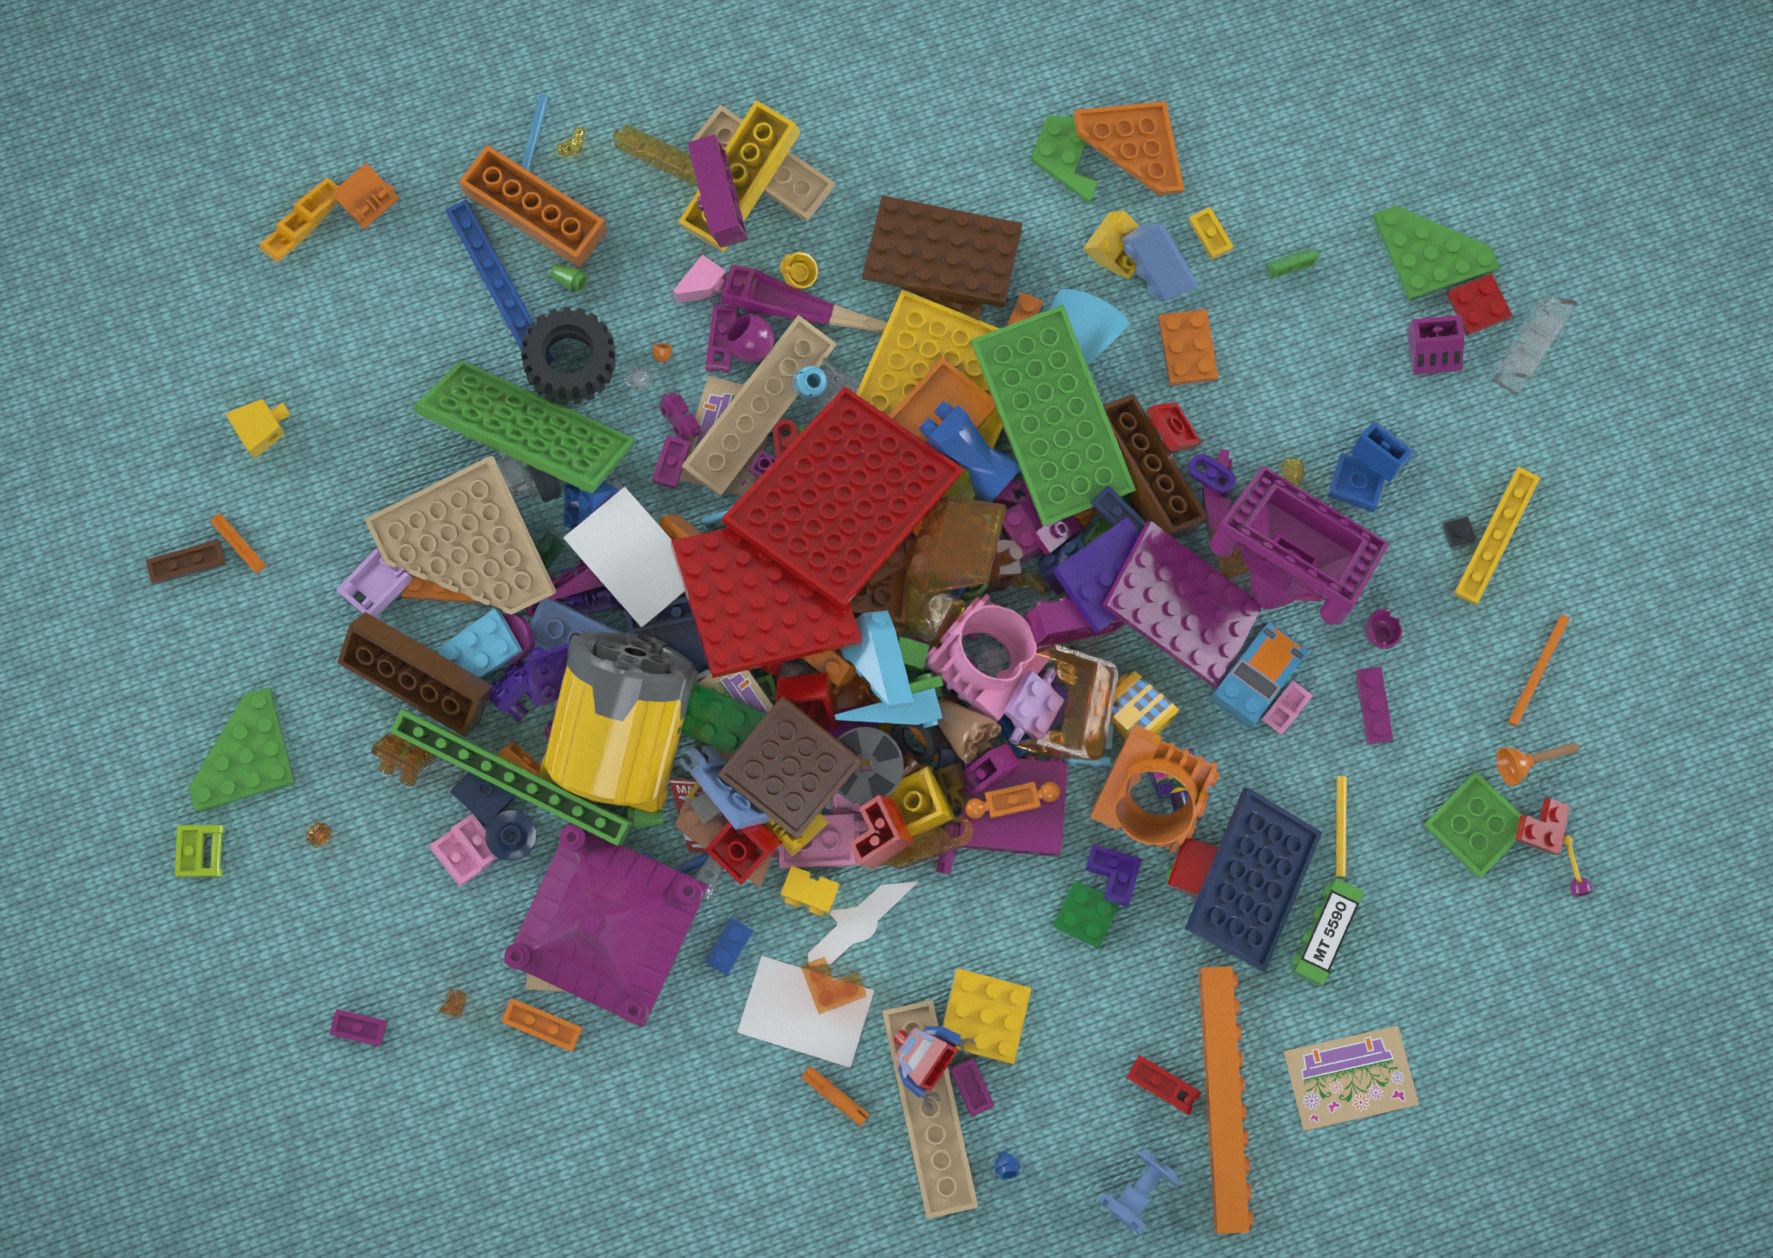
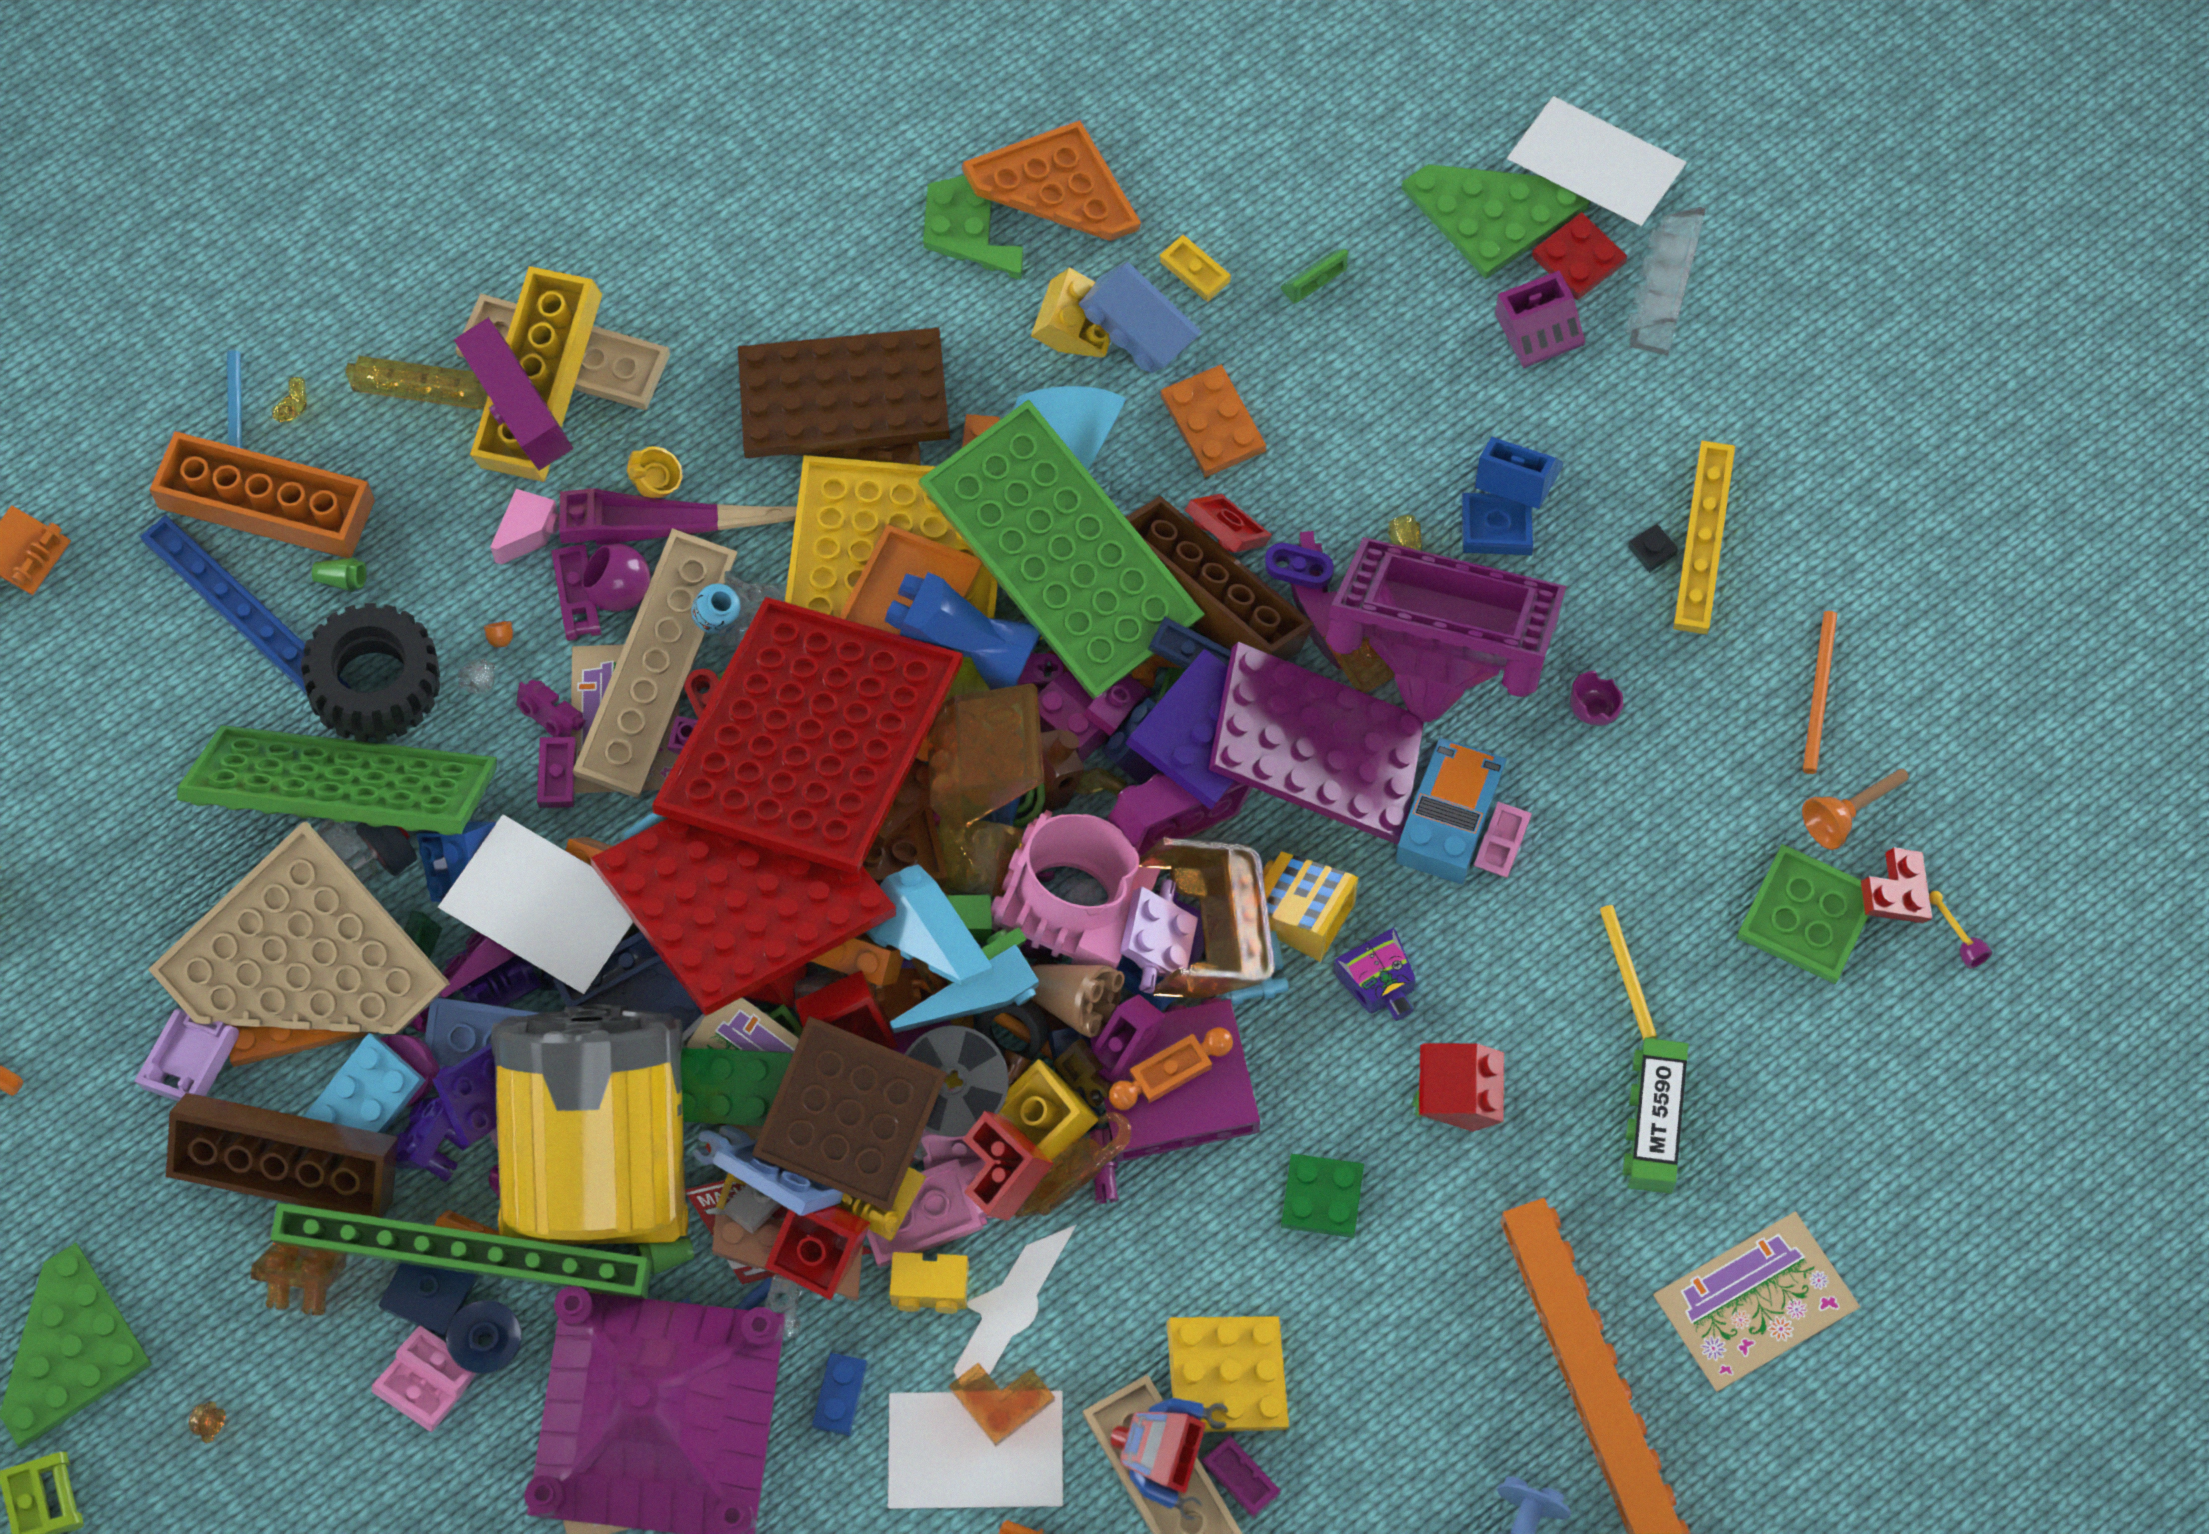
camera: 15 degrees left, 10 degrees down
(1120, 869) = (1346, 1118): dark purple plate -> none
(1147, 753) = (1311, 1031): orange hose -> none
(1163, 1084) = (1504, 1389): red plate -> none
(1253, 880) = (1534, 1073): dark blue plate -> none
(1374, 705) = (1618, 802): magenta plate -> none
(1514, 238) = (1597, 160): none -> white sticker

